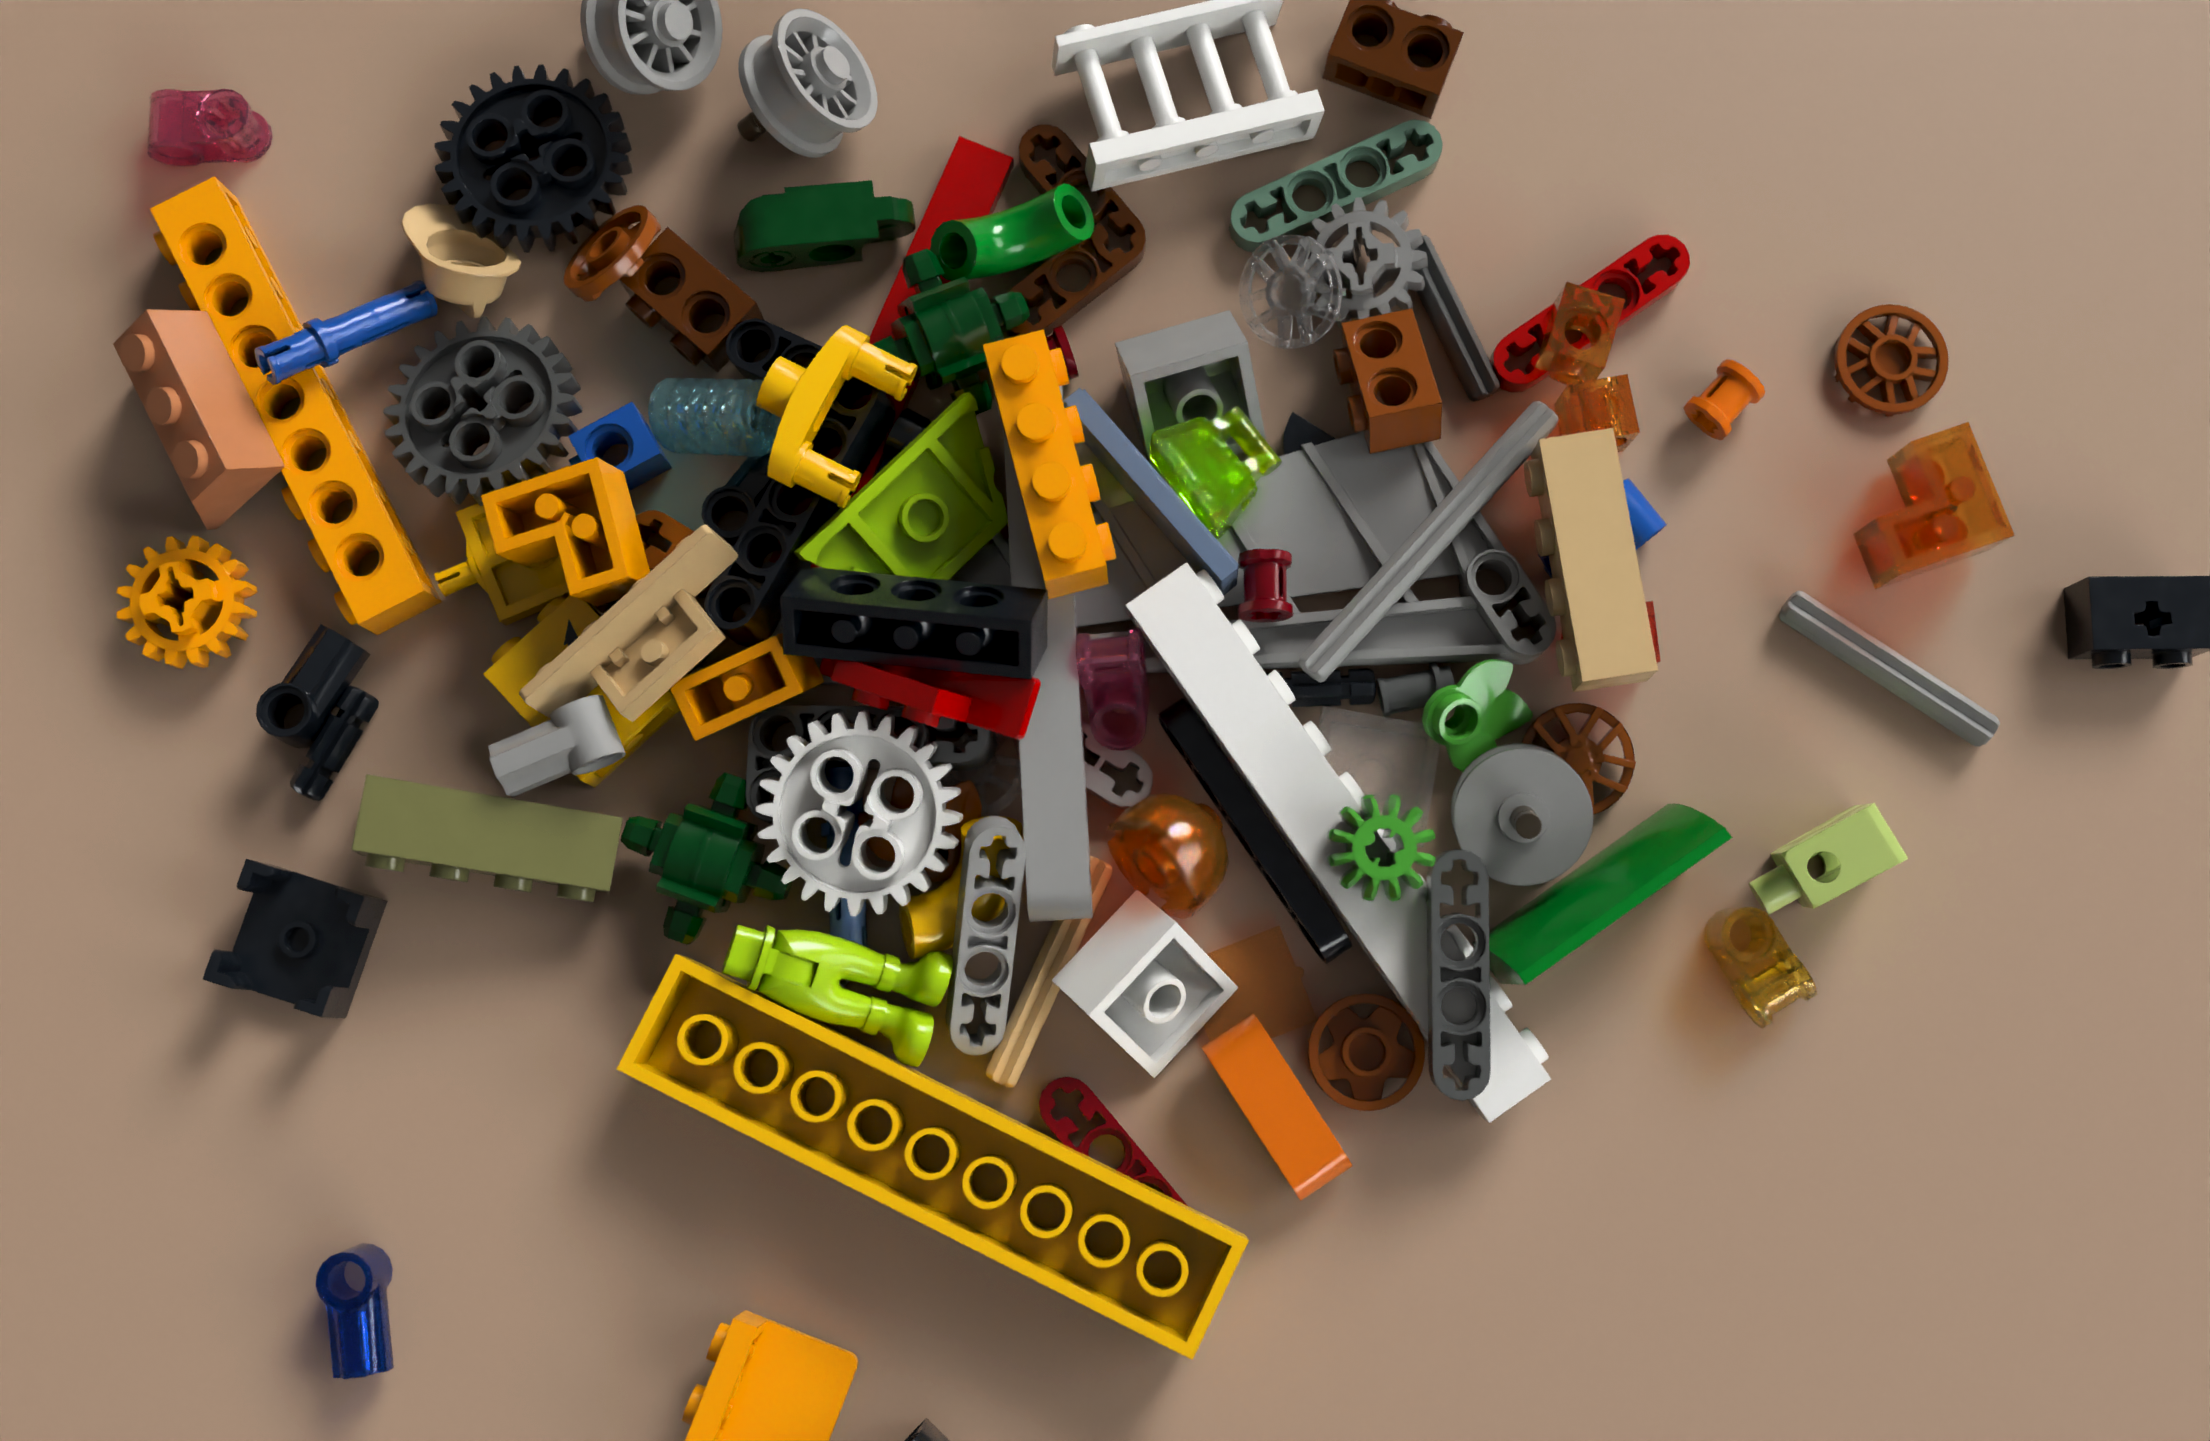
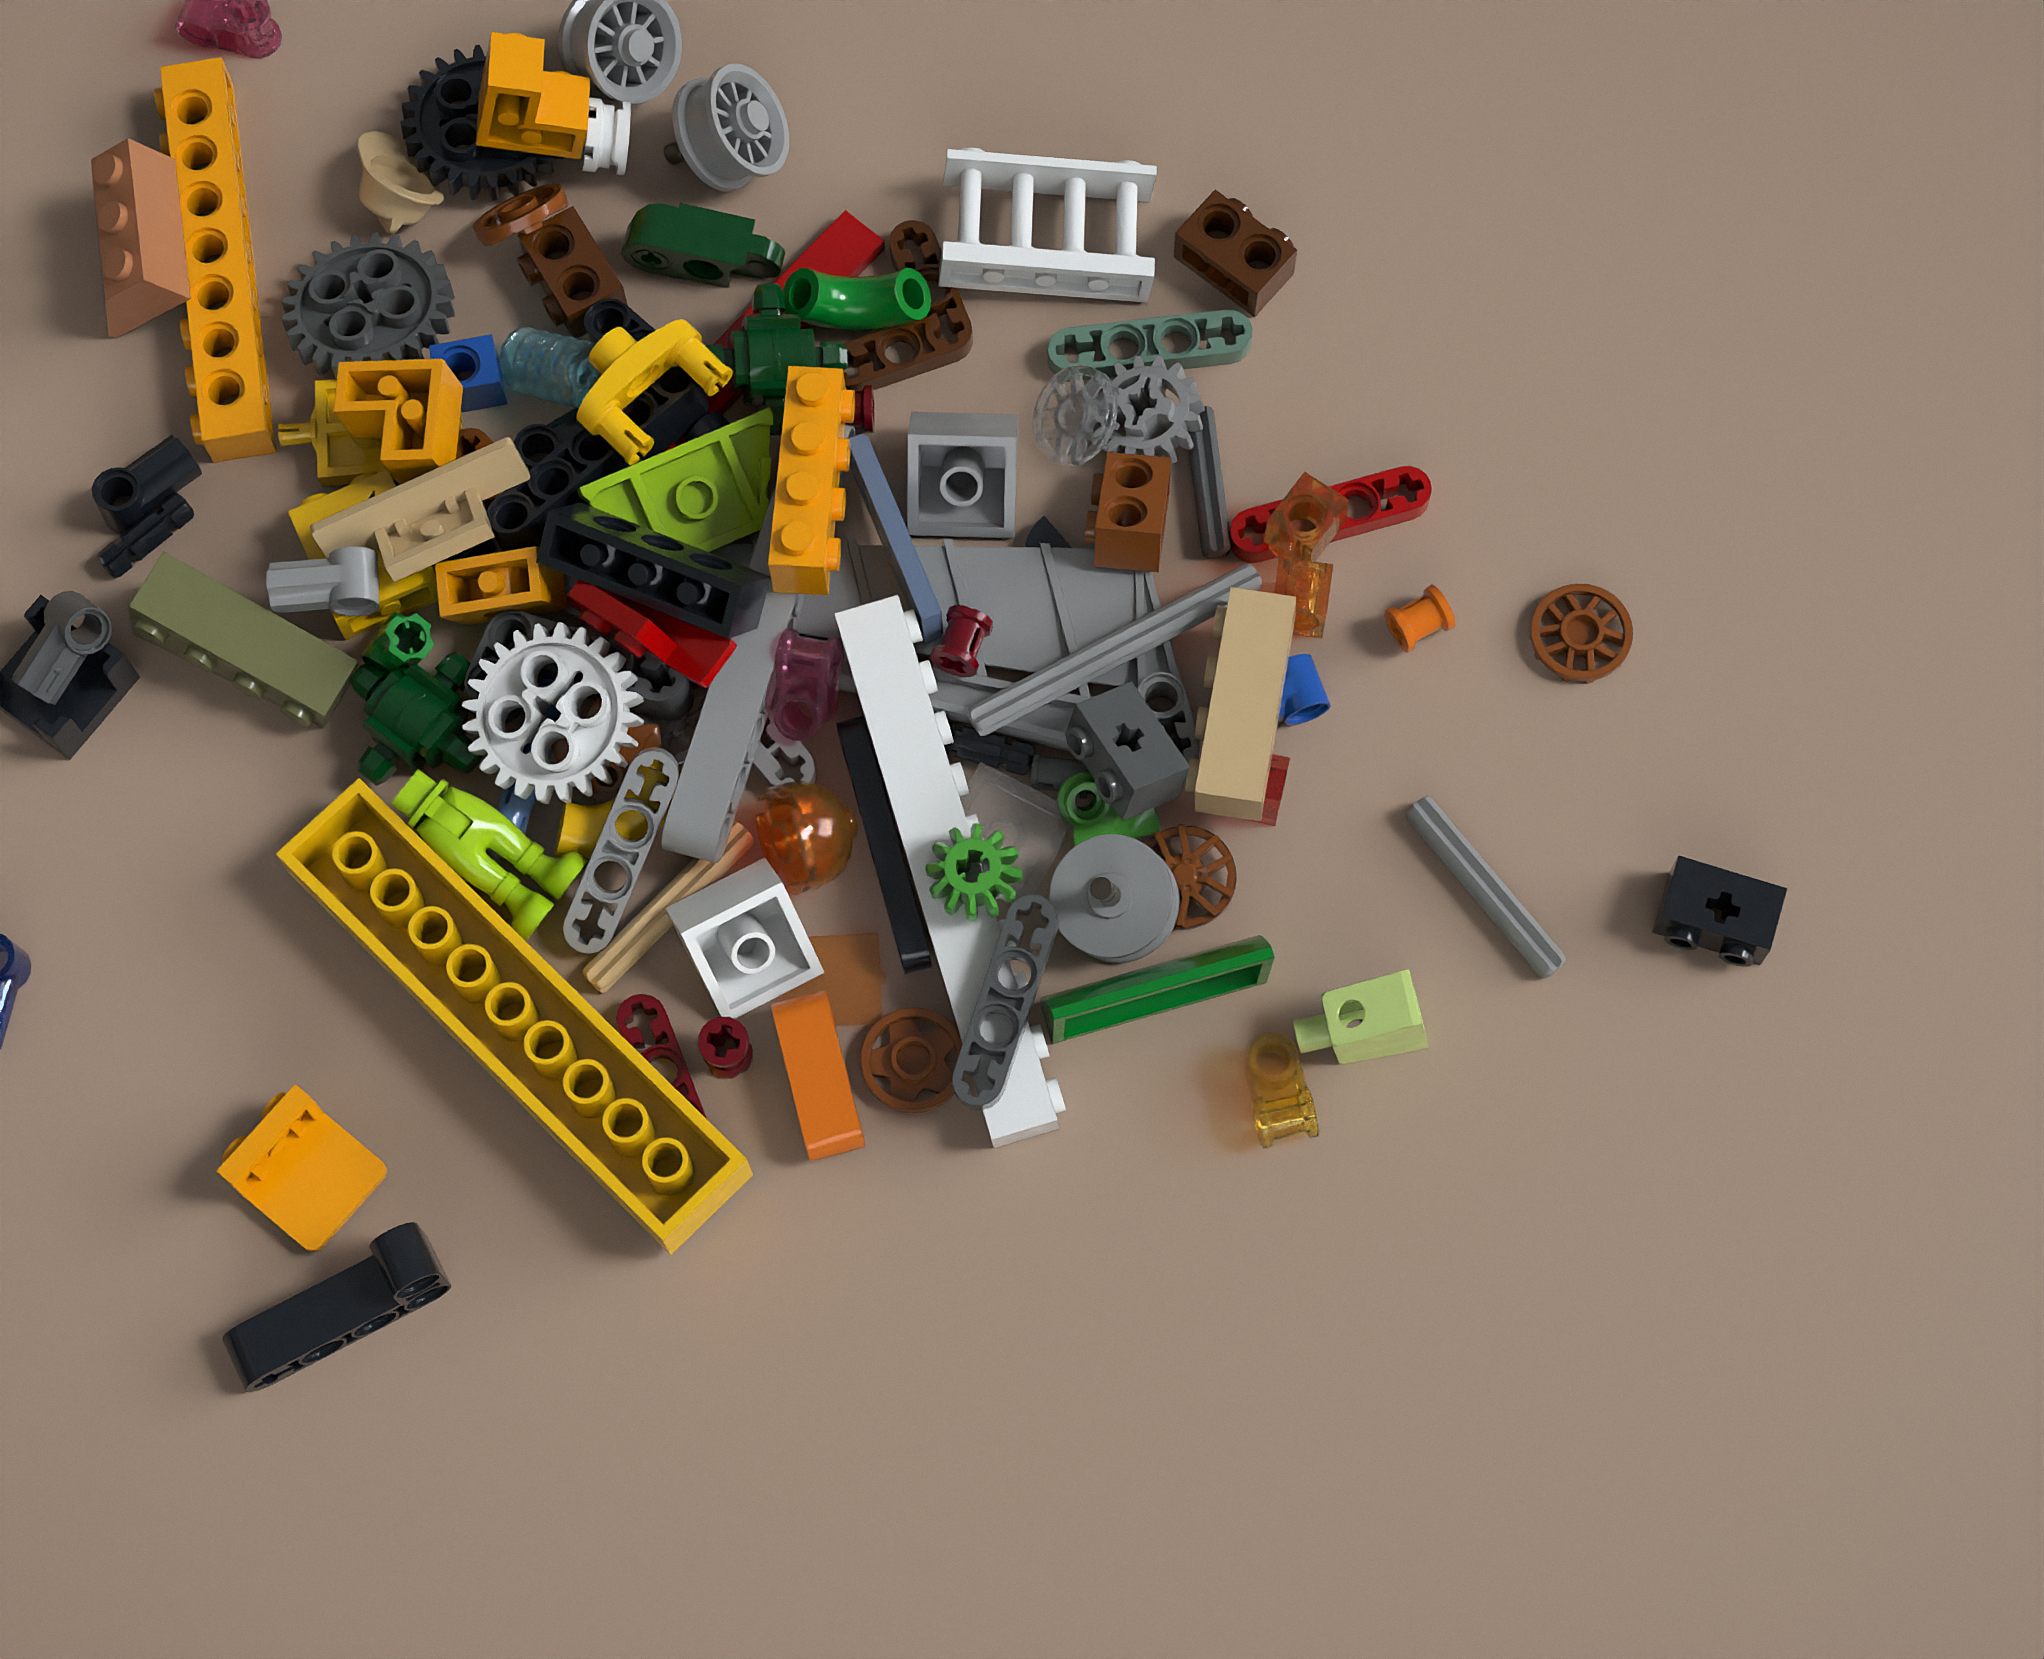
camera: 20 degrees right, 10 degrees down
(166, 586) = (73, 388): light orange gear -> none
(292, 909) = (58, 650): none -> dark grey piece
(326, 340) = (271, 210): blue pin -> none
(578, 128) = (528, 106): none -> light orange brick
(661, 783) = (399, 643): none -> green piece
(672, 134) = (606, 137): none -> white wheel
(1183, 1120) = (715, 1034): none -> dark red bush
(1207, 471) = (947, 533): clear neon green piece -> none
(1489, 655) = (1126, 751): none -> dark grey brick
(1947, 513) = (1570, 774): clear orange brick -> none

